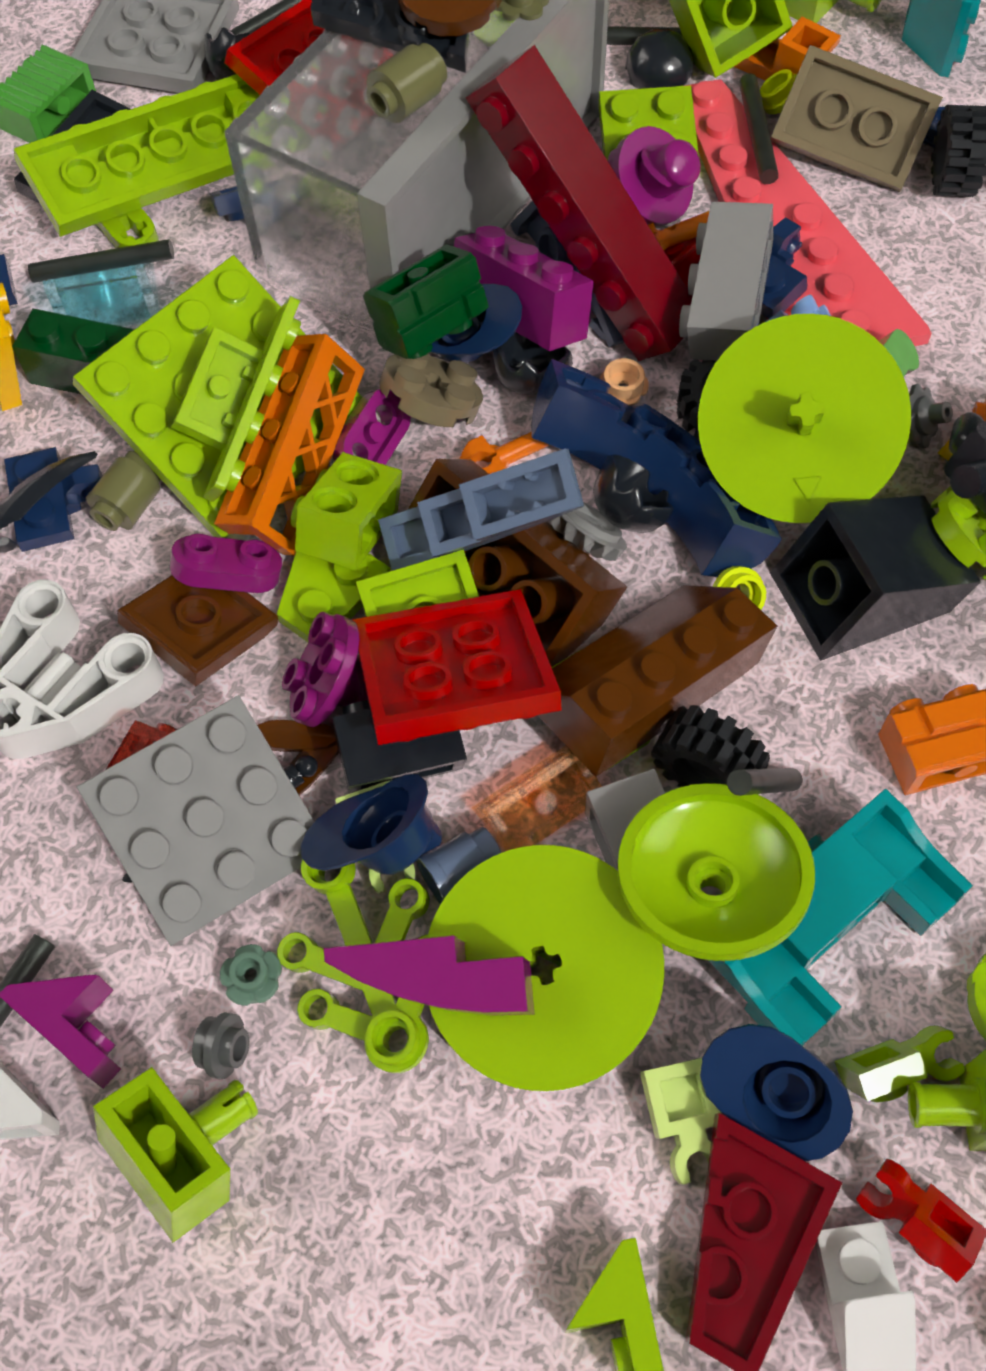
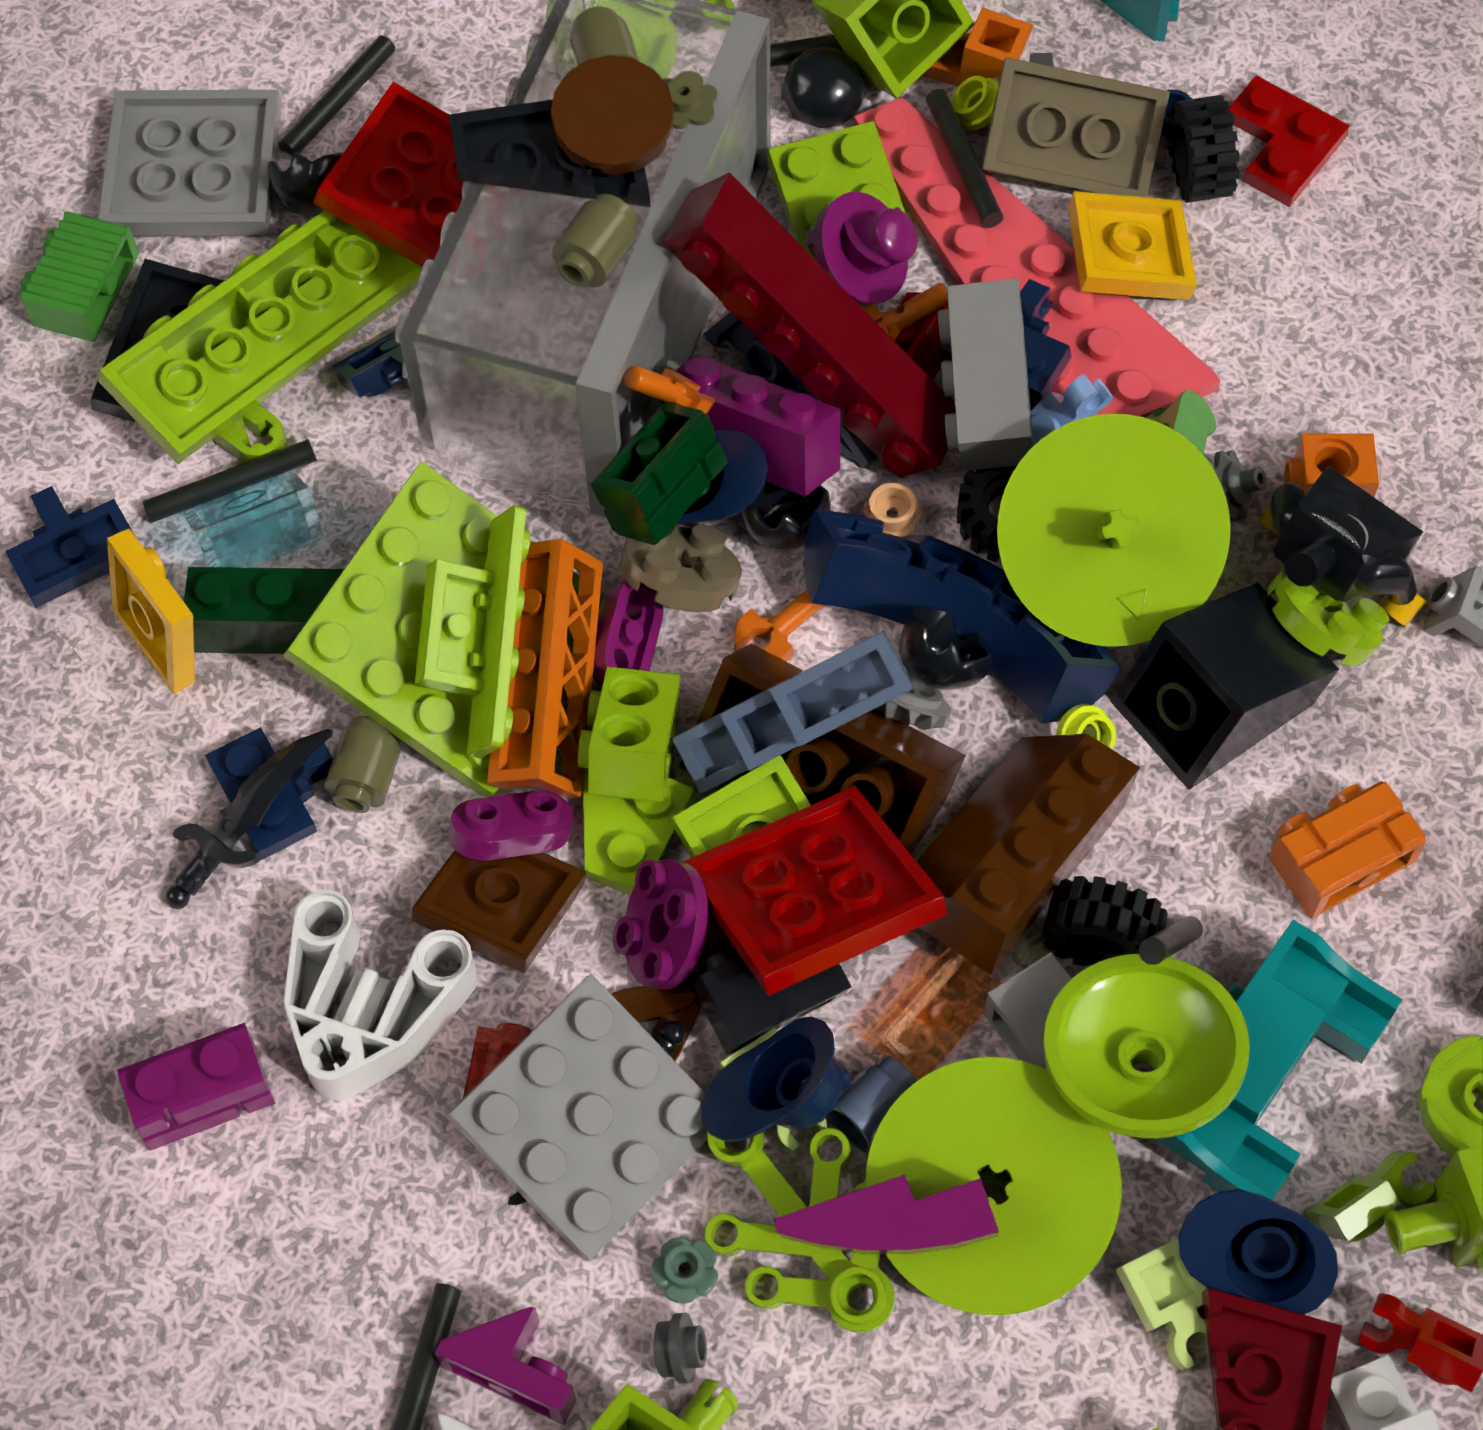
camera: 15 degrees left, 0 degrees up
(448, 233) = (667, 387): none -> orange bar
(881, 216) = (1131, 246): none -> yellow plate

